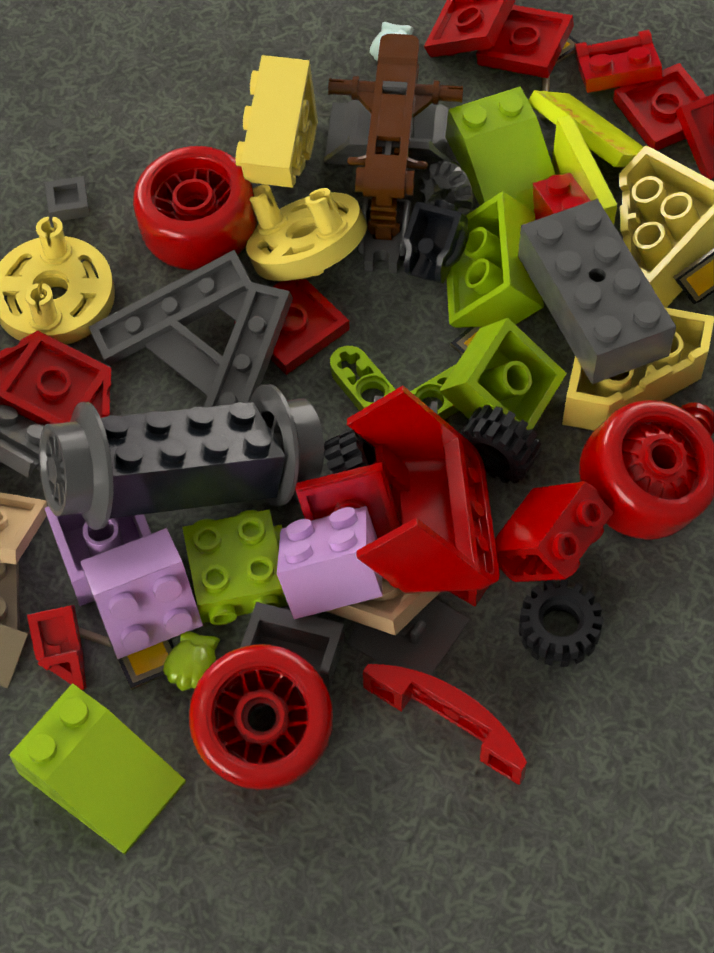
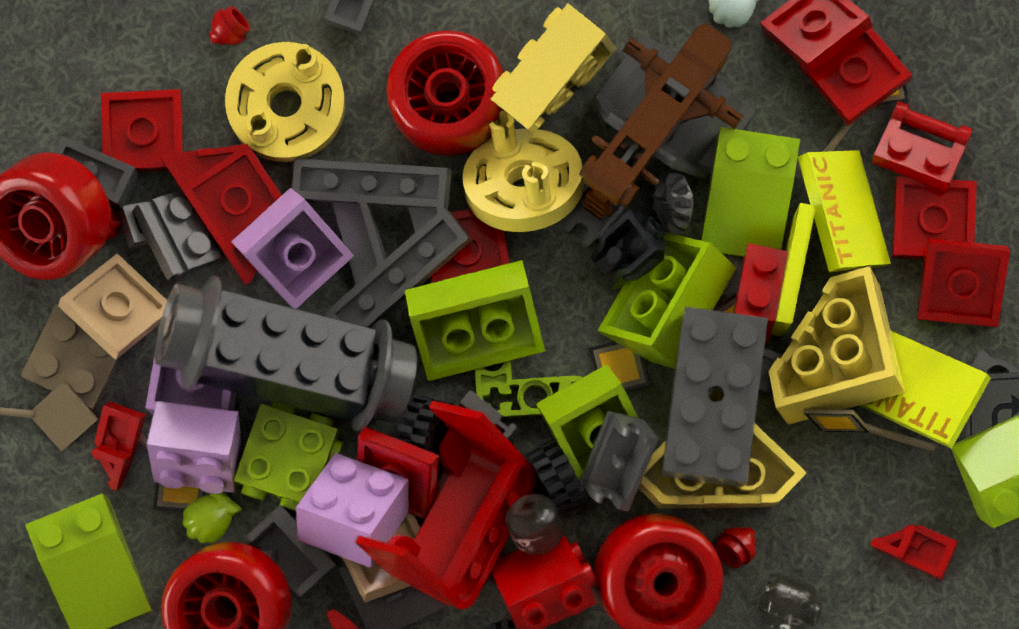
camera: 30 degrees right, 20 degrees up
(132, 375) = (292, 248): none -> lavender brick
(340, 357) = (474, 320): none -> lime slope
(508, 482) = (534, 524): none -> clear smoke head
(548, 385) = (618, 459): none -> dark grey hinge

